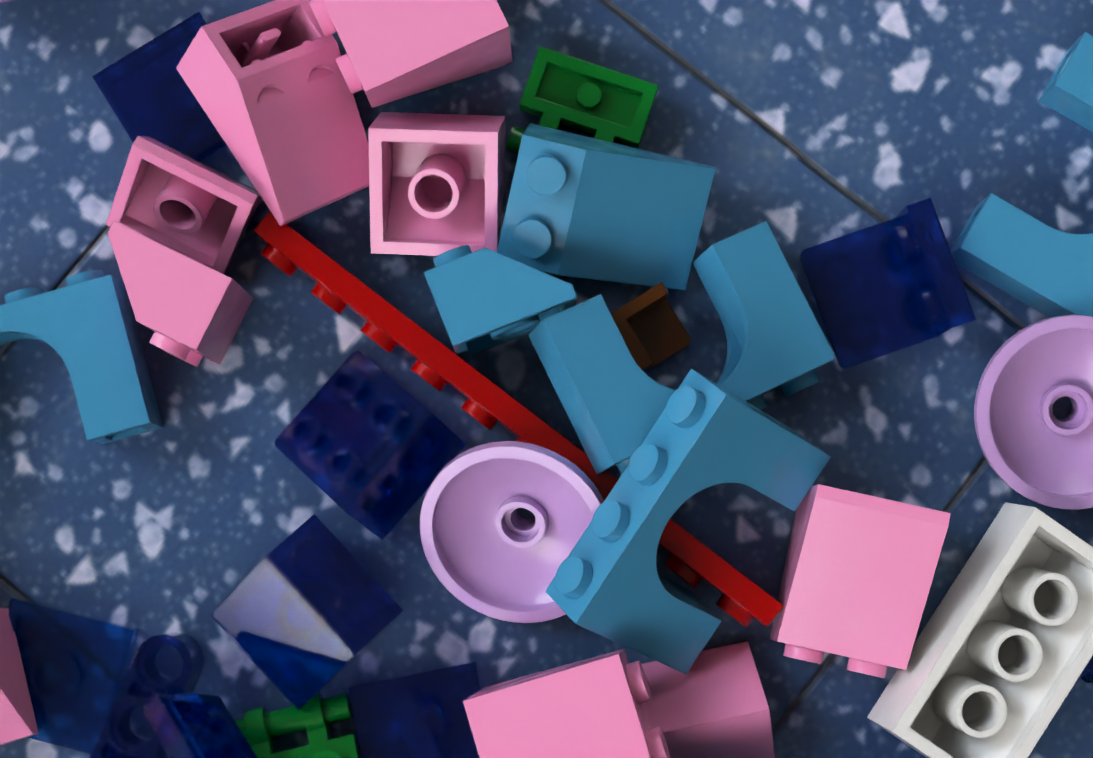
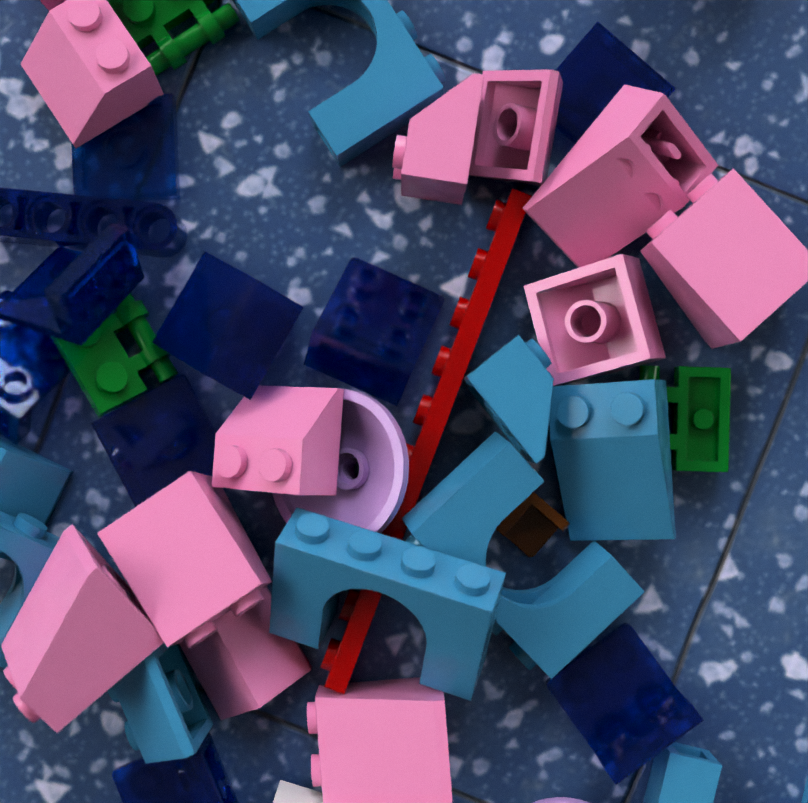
camera: 70 degrees right, 5 degrees up
(464, 589) = (281, 442): none -> bright pink slope

